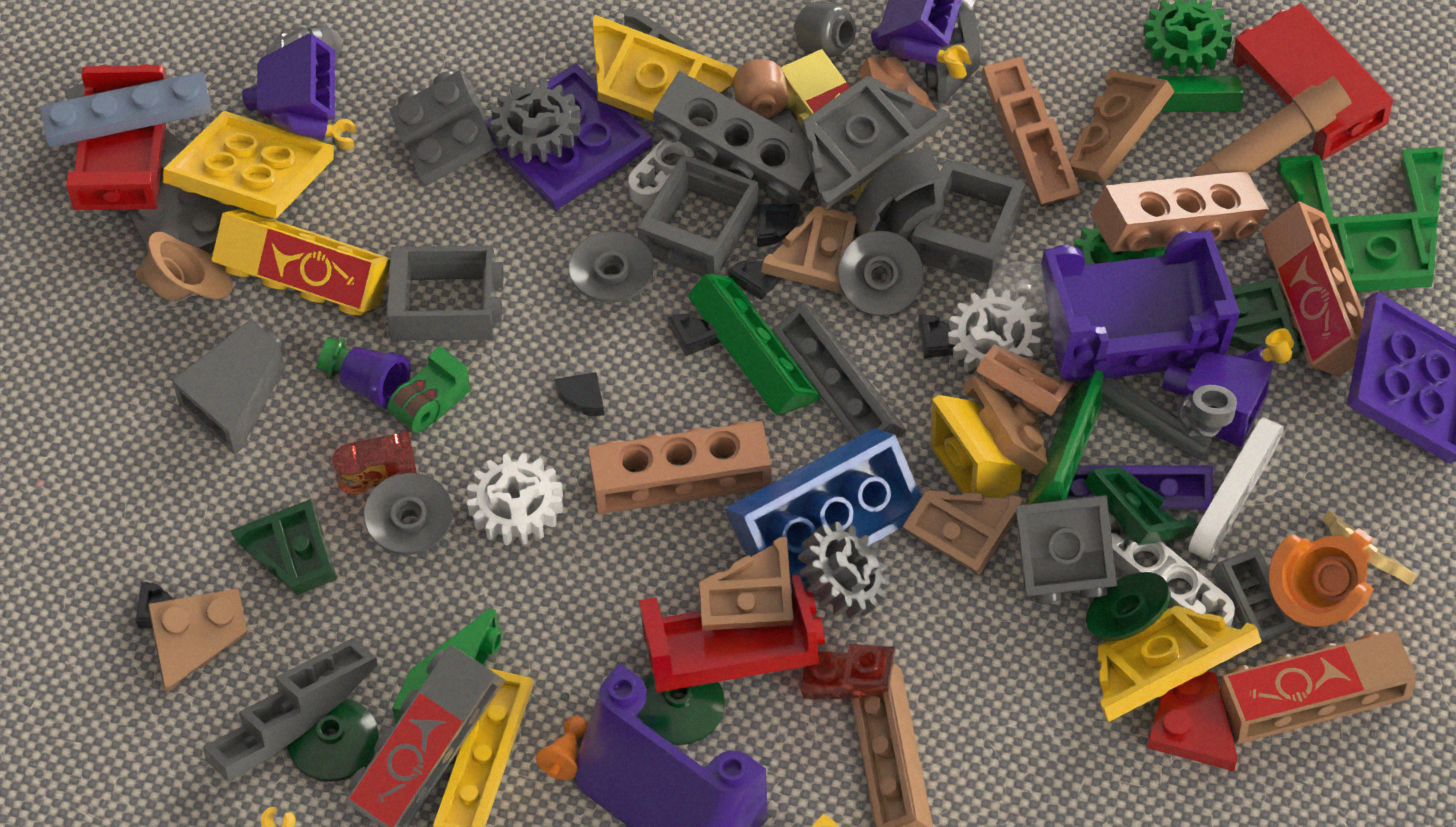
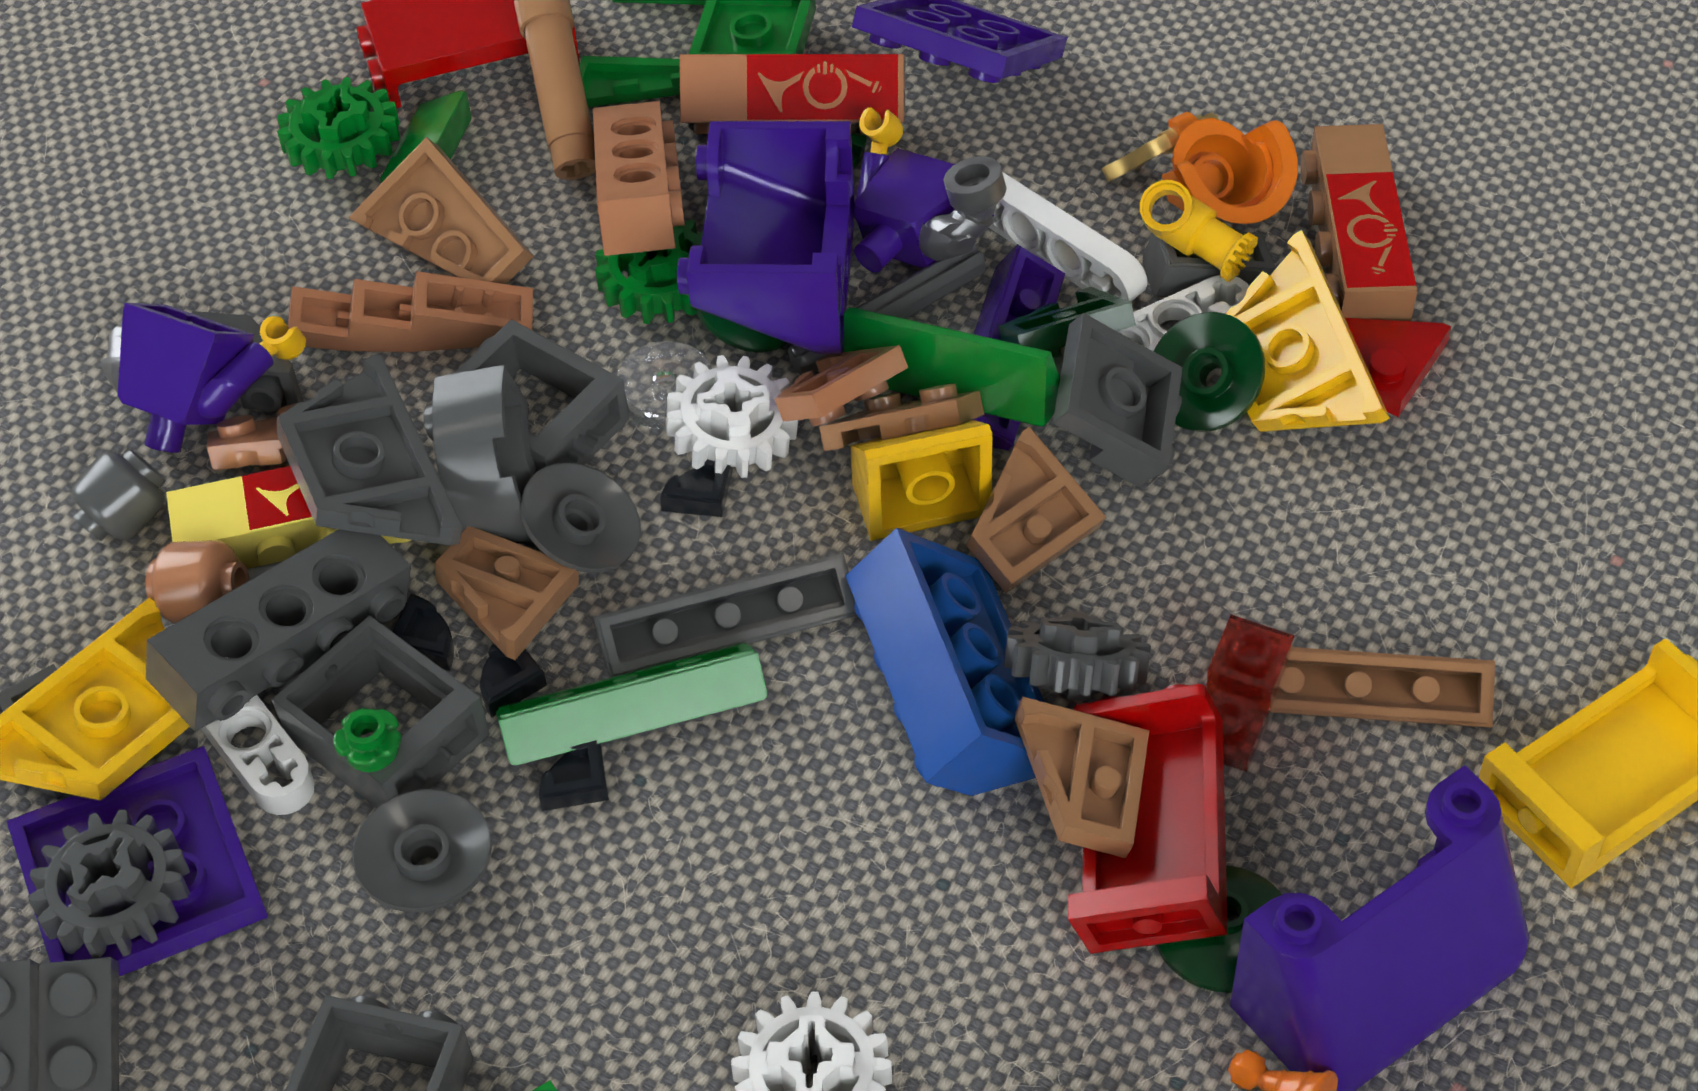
camera: 75 degrees left, 5 degrees down
(581, 393) = (634, 944): black tile -> none
(663, 215) = (371, 752): none -> green plate
(666, 483) = (823, 927): nougat brick -> none
(1247, 566) = (1198, 230): none -> yellow connector

